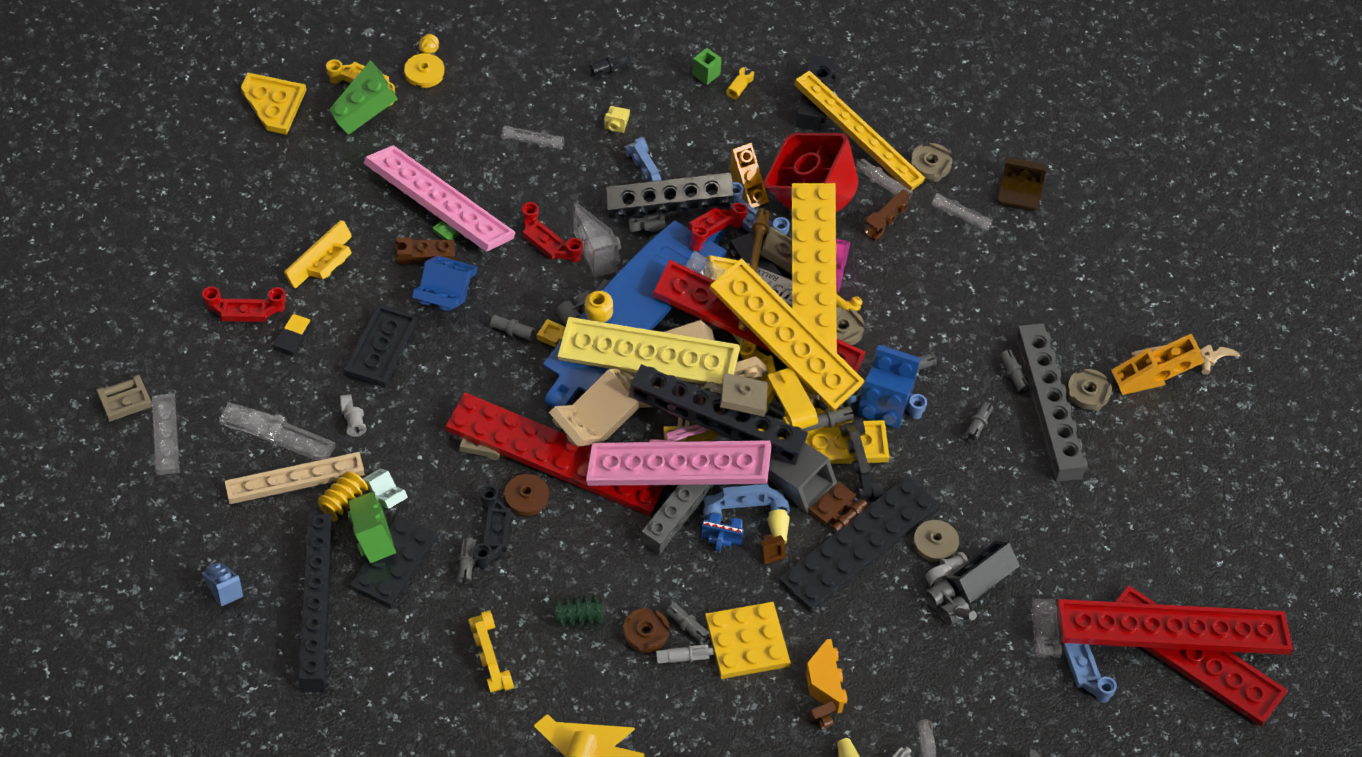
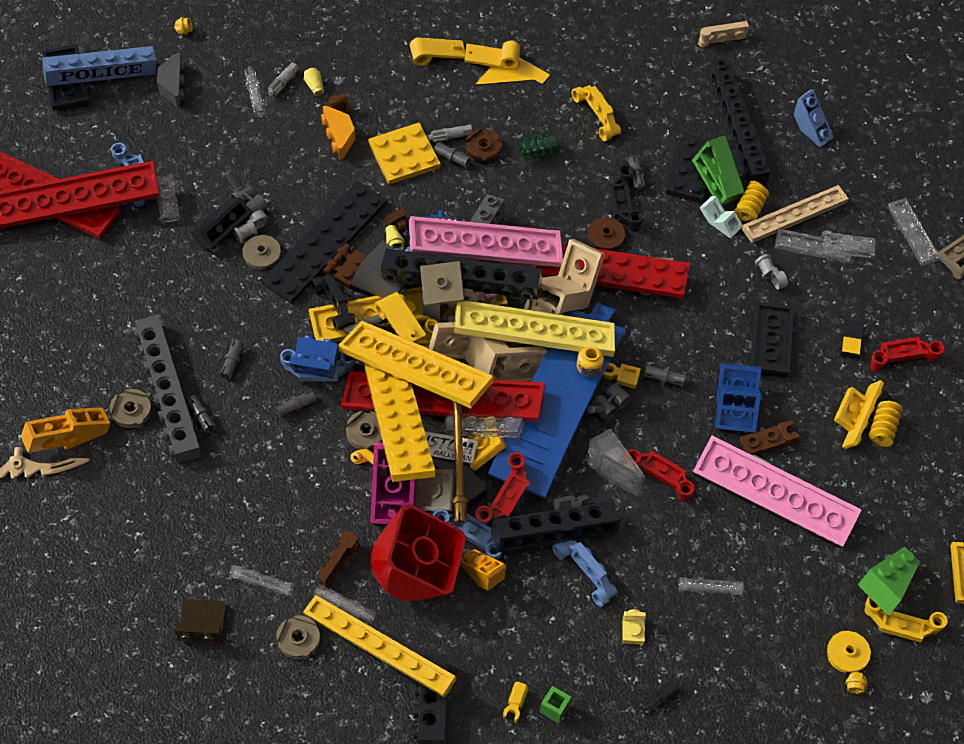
camera: 170 degrees right, 5 degrees up
(284, 736) = (723, 33): none -> tan plate
(299, 239) = (885, 423): none -> yellow piece

